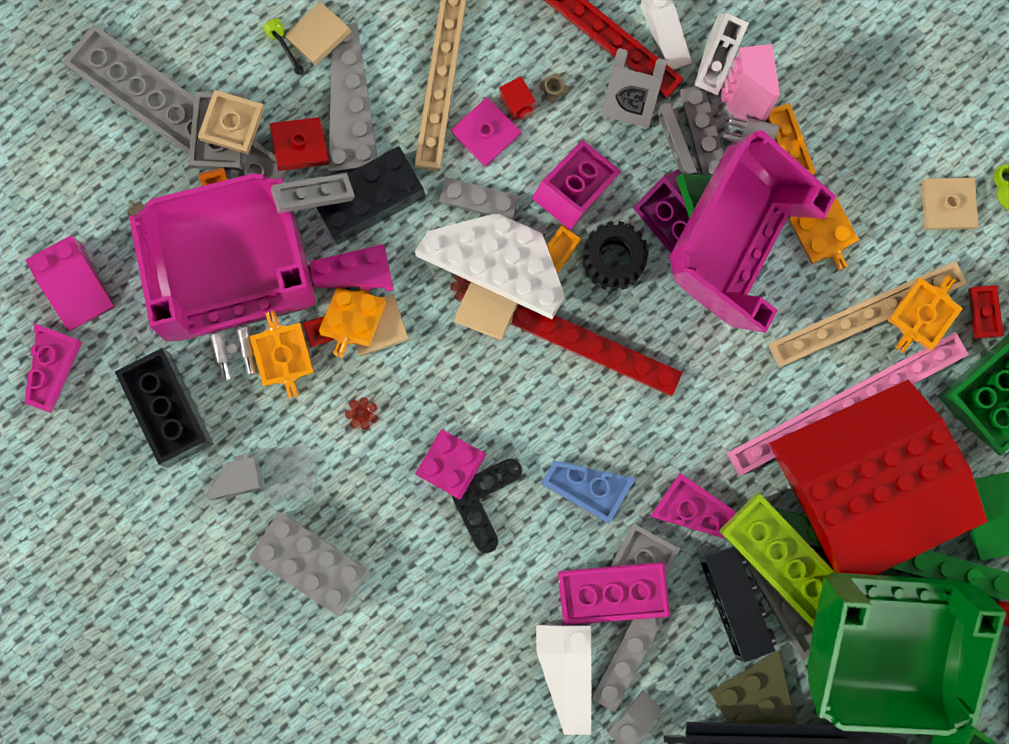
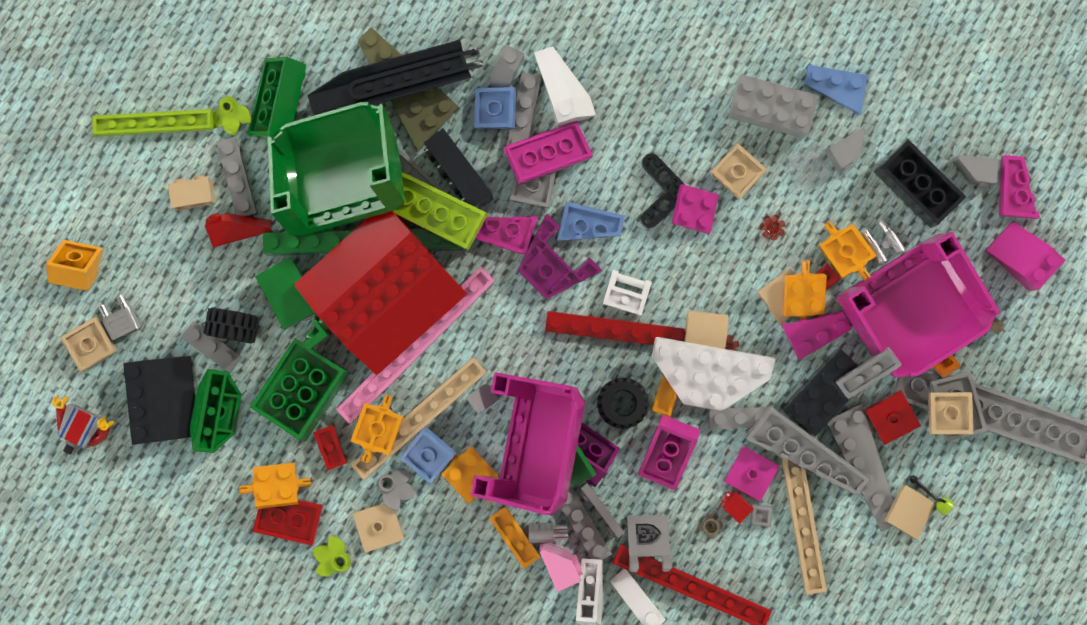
camera: 155 degrees right, 5 degrees up
(86, 403) = (978, 170): none -> light grey slope
(218, 566) = (839, 85): none -> medium blue wing
(380, 495) = (738, 171): none -> tan plate
(428, 149) = (793, 443): none -> light grey wing
(490, 81) = (761, 515): none -> light grey tile
(573, 381) = (626, 299): none -> white plate
(658, 445) = (546, 269): none -> magenta wing
(664, 673) = (495, 108): none -> medium blue plate
(791, 311) = (482, 398): none -> light grey slope
(869, 266) = (428, 455): none -> medium blue plate
(915, 237) = (398, 490): none -> light grey plate
(976, 447) = (316, 333): none -> green bracket

